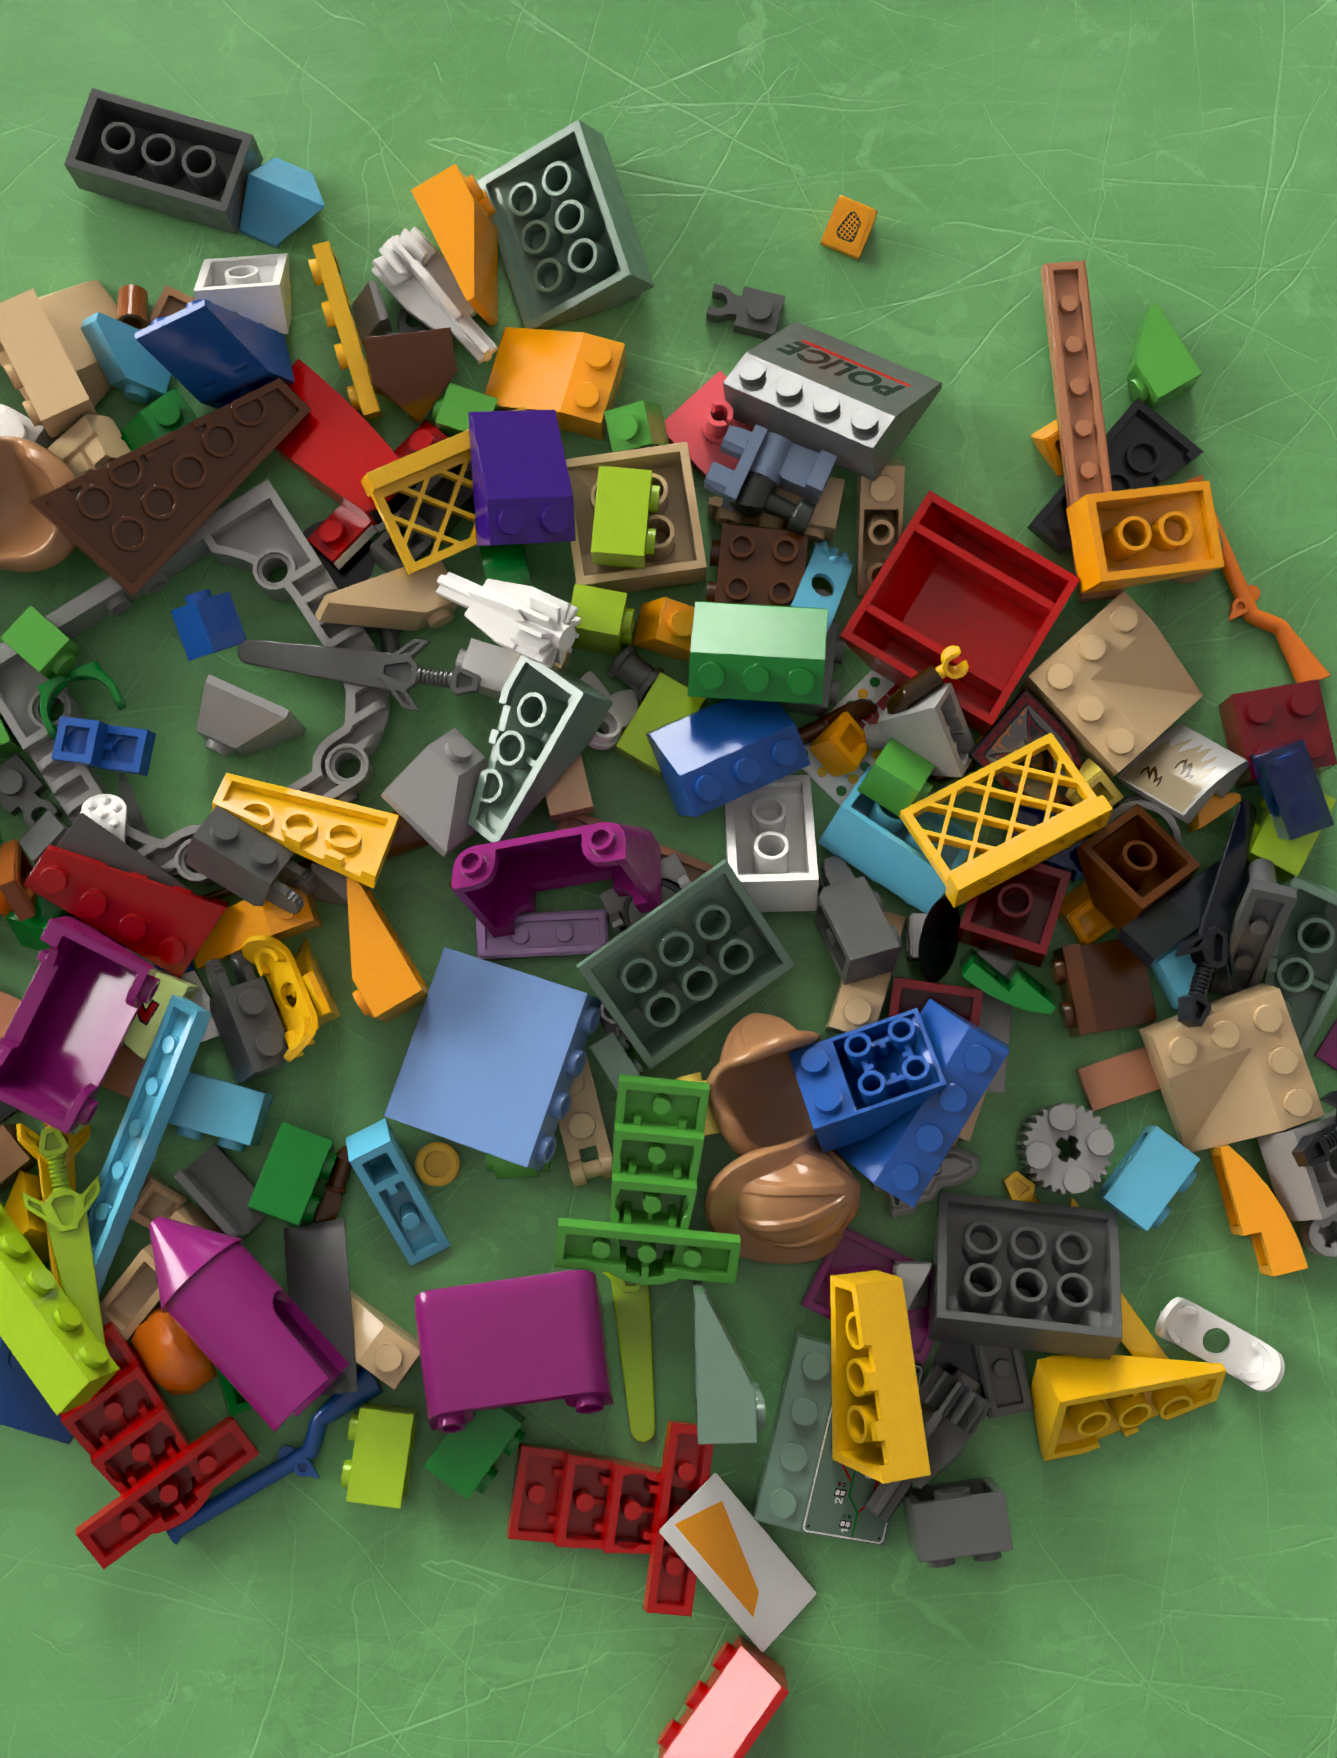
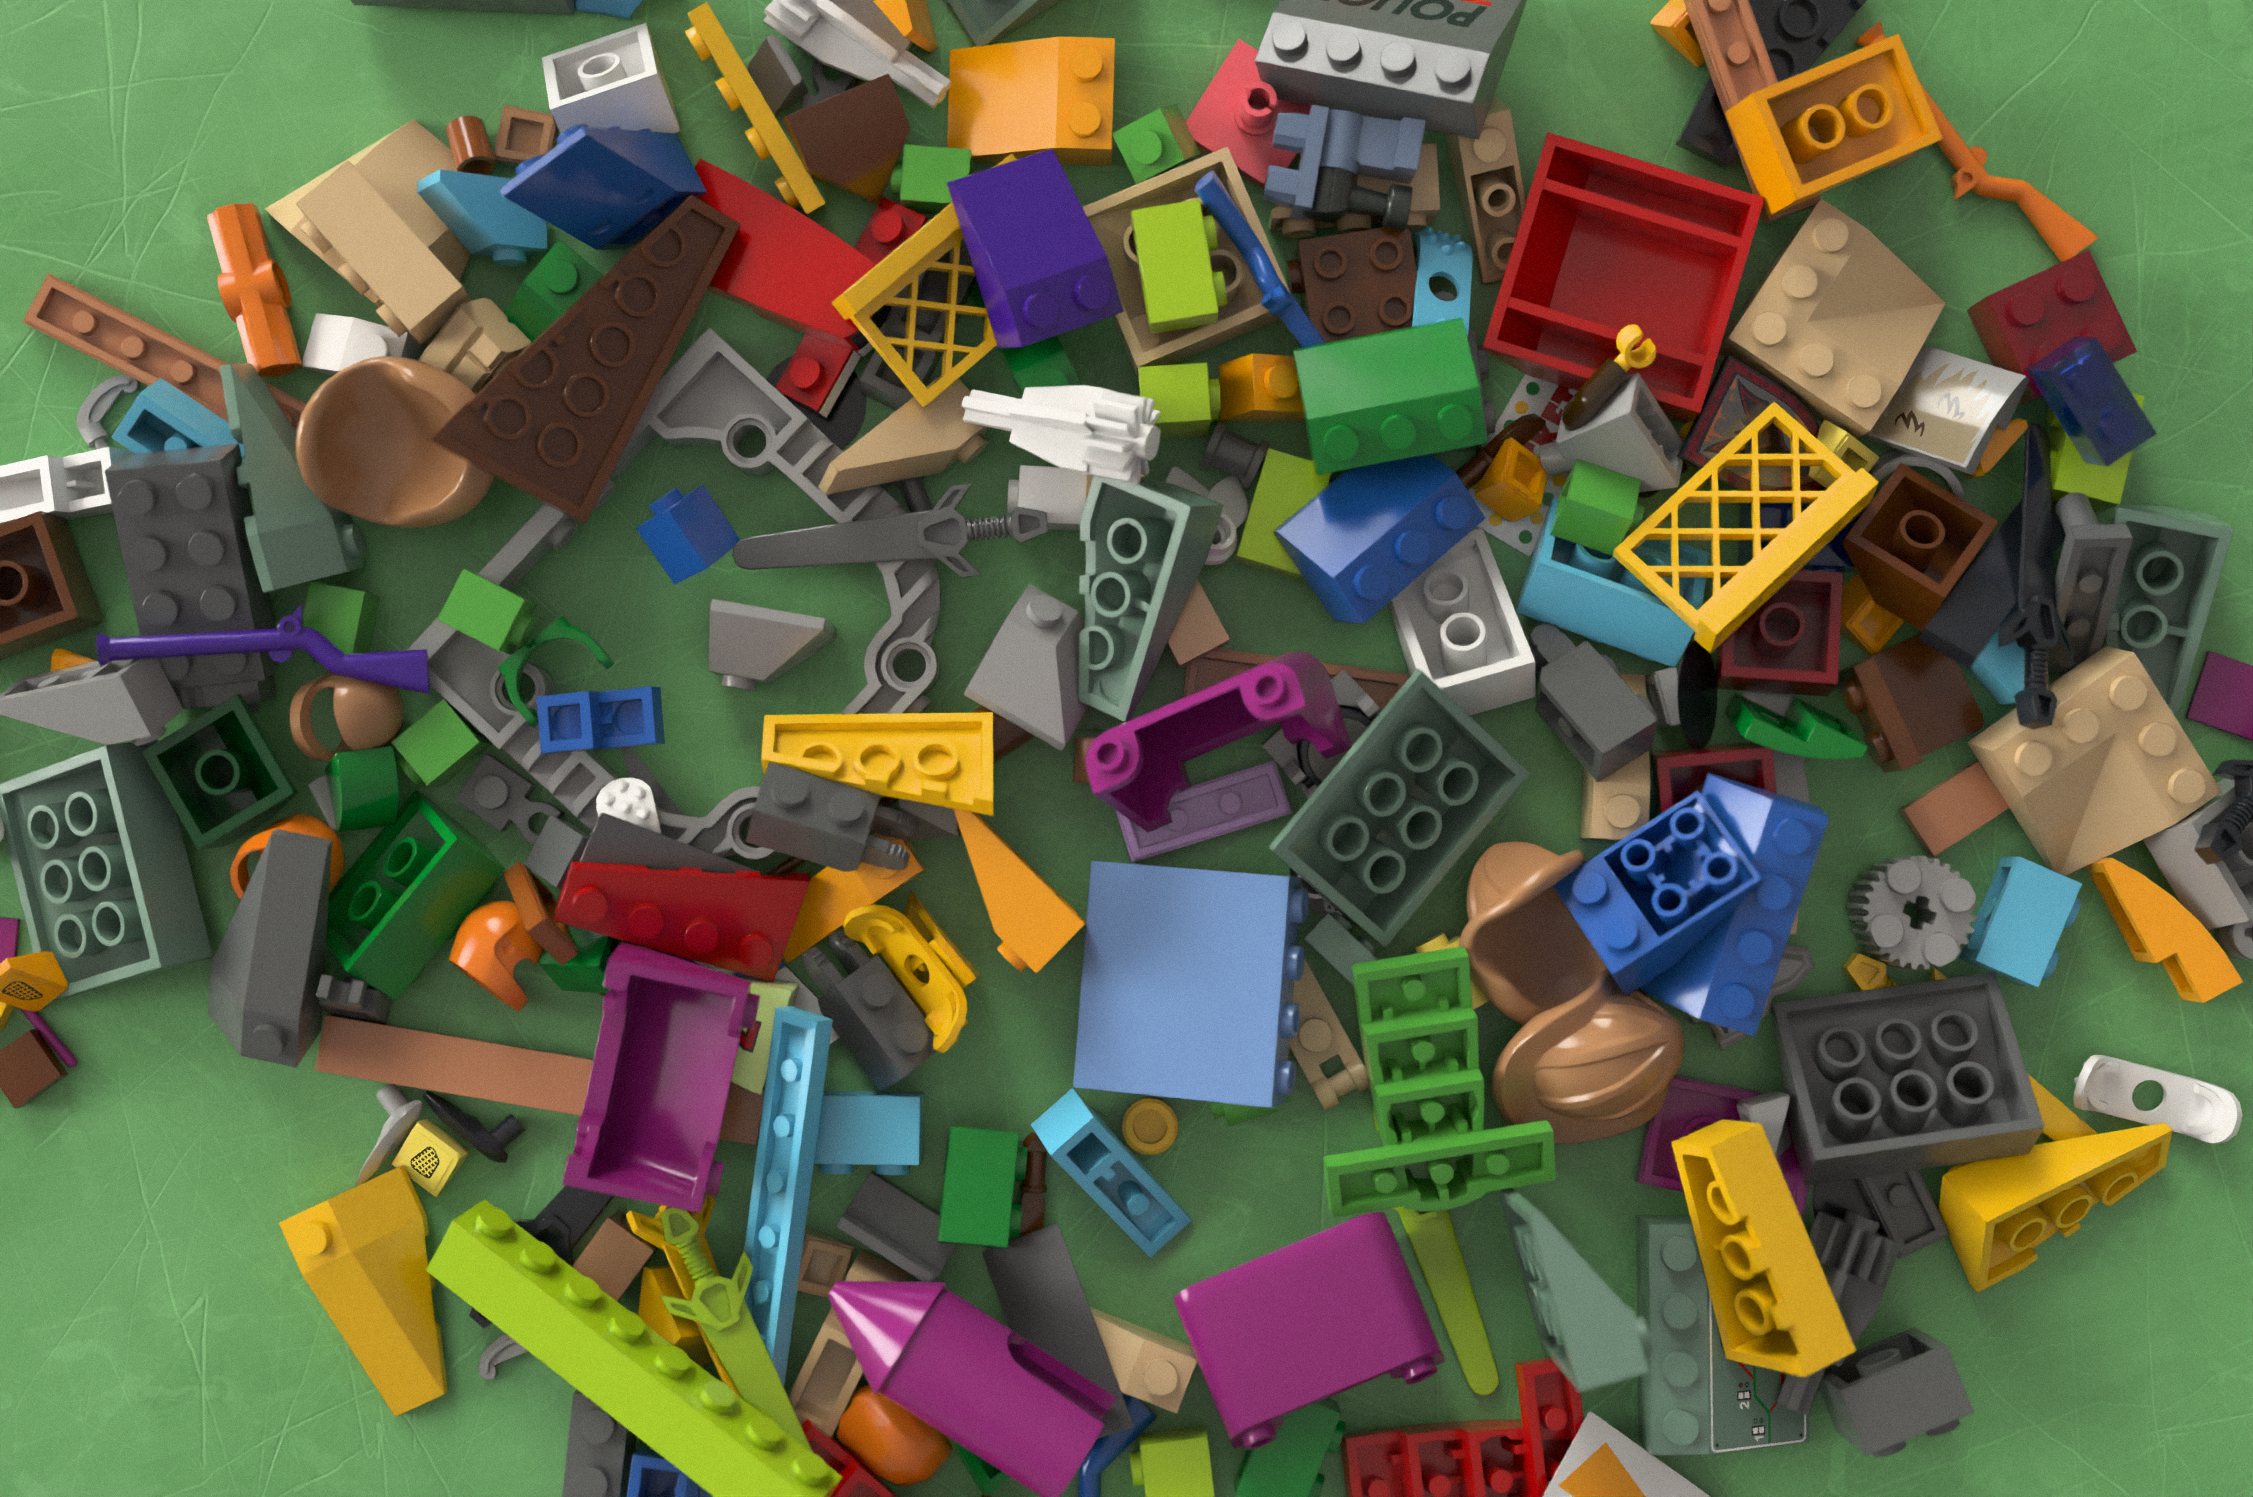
camera: 15 degrees left, 5 degrees up
(692, 557) = (1276, 295): none -> blue piece

